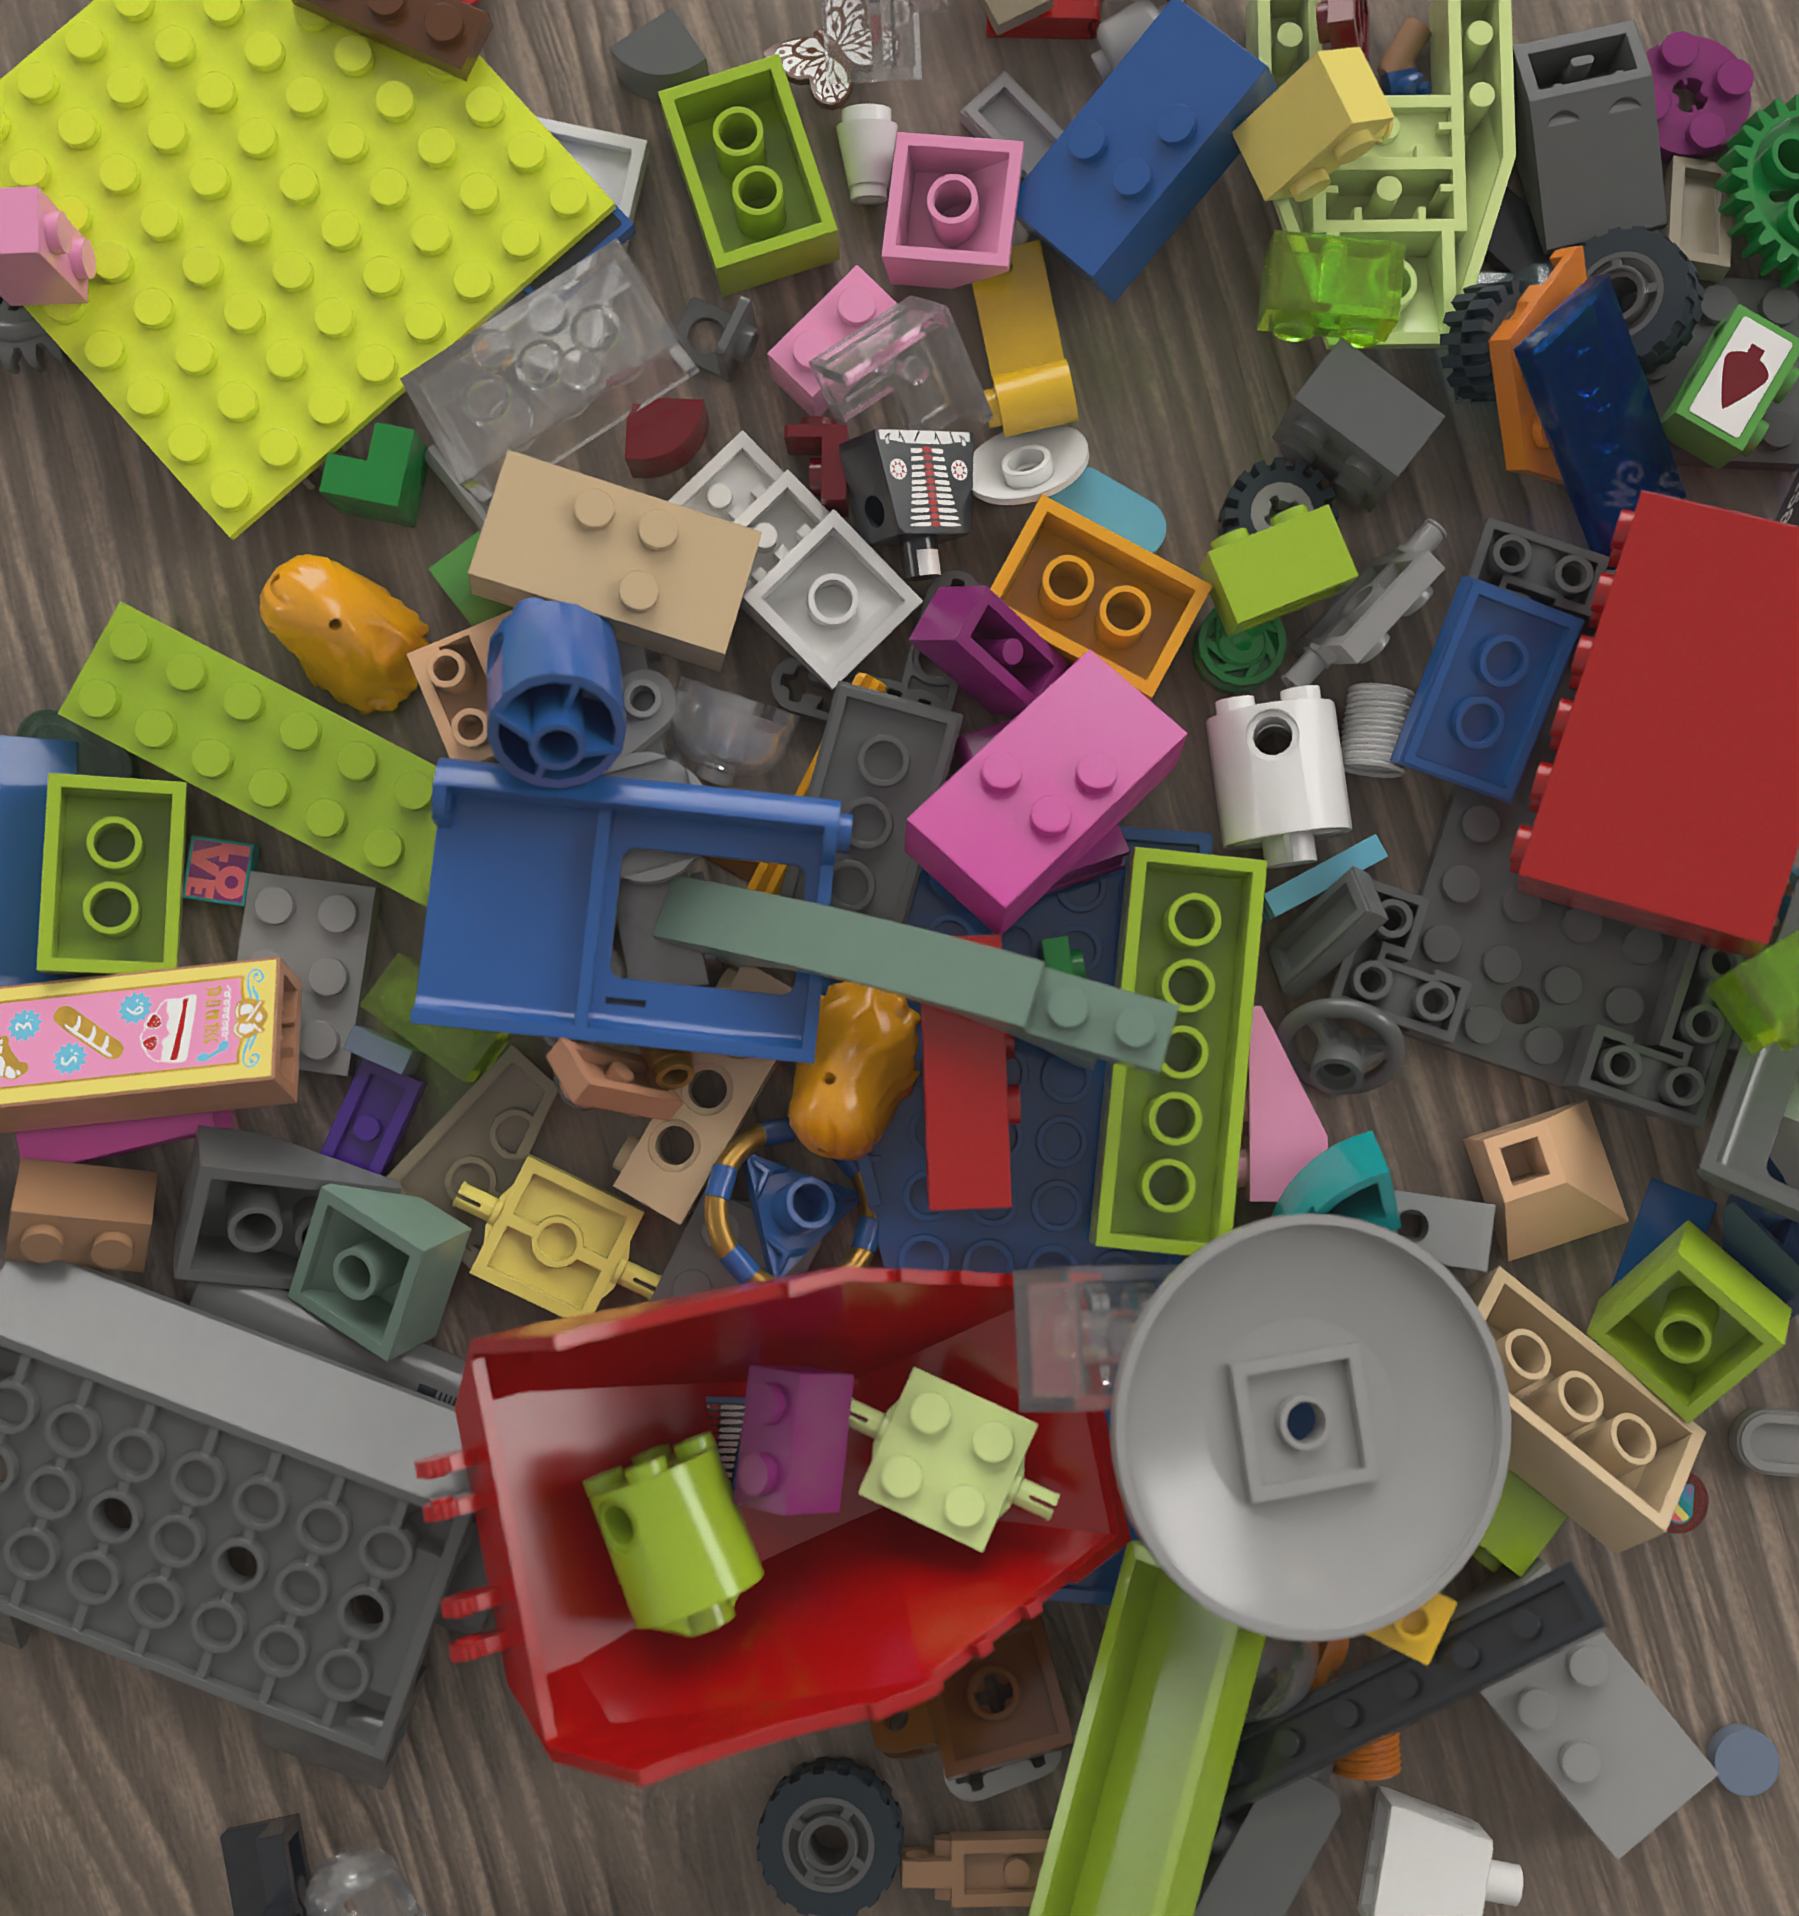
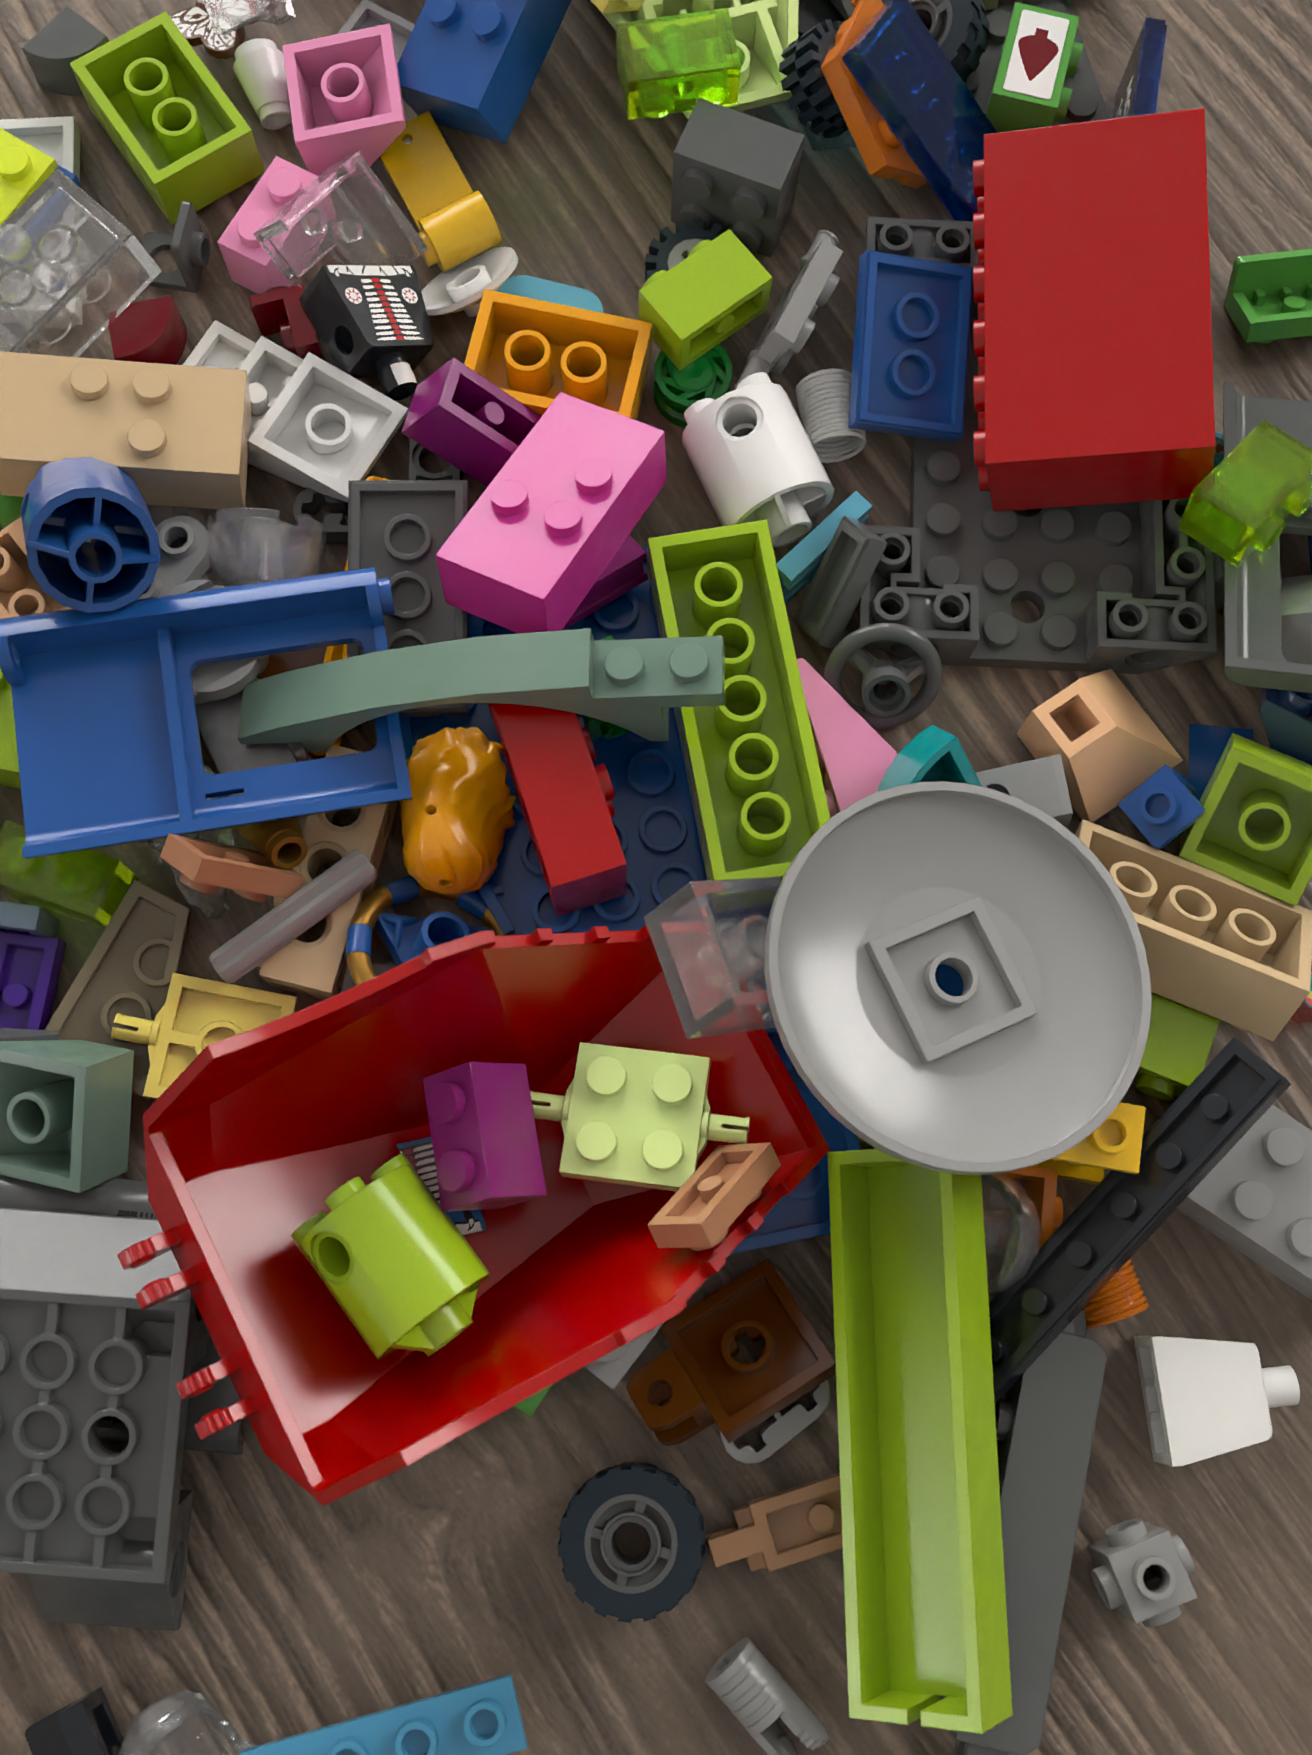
camera: 20 degrees left, 10 degrees down
(662, 1139) = (293, 916): none -> light grey axle
(1002, 1572) = (714, 1196): none -> nougat plate
(1588, 1278) = (1163, 806): none -> blue bracket

